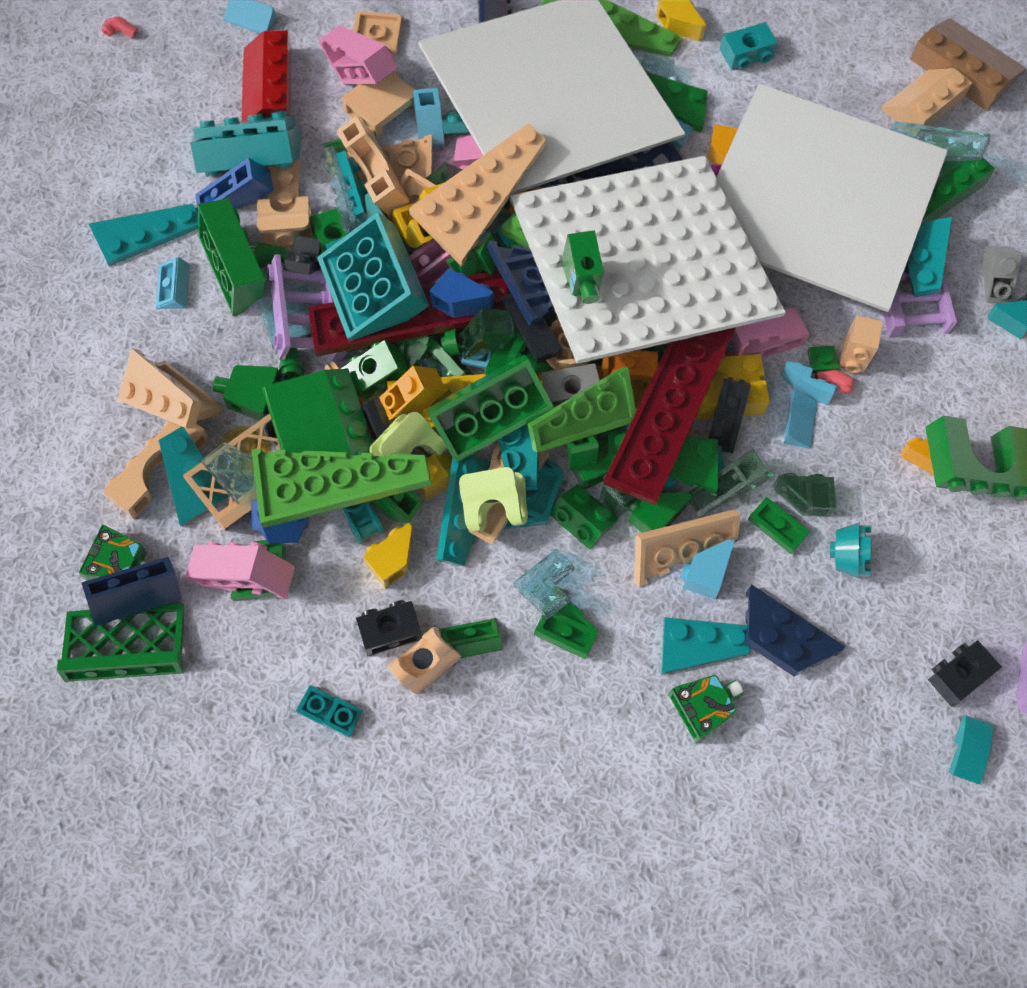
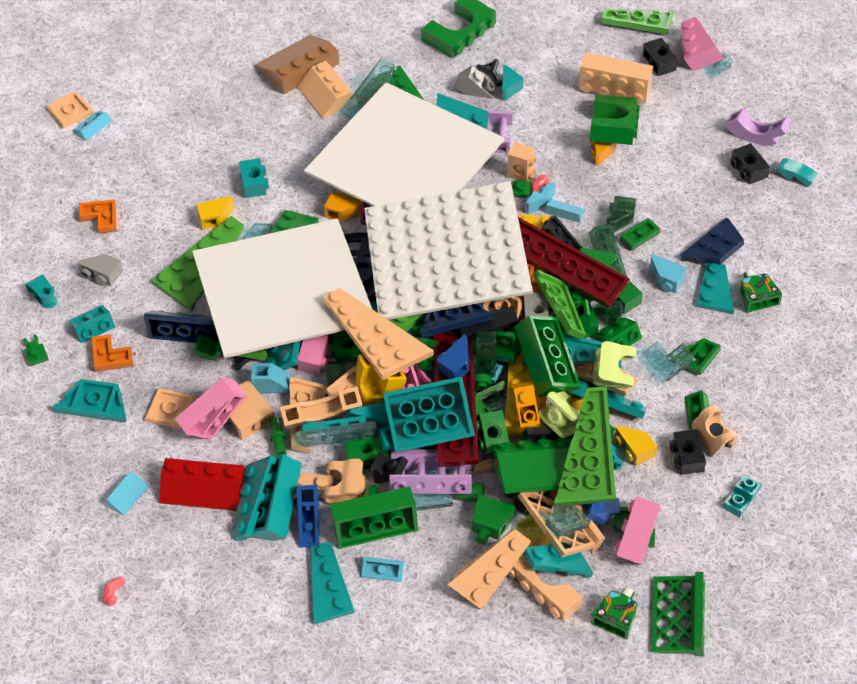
camera: 75 degrees left, 15 degrees down
(131, 591) = (647, 597): dark blue brick -> none
(583, 265) = (466, 271): green torso -> none
(668, 546) = (648, 283): light nougat wing -> none
(852, 550) = (666, 196): teal cone -> none

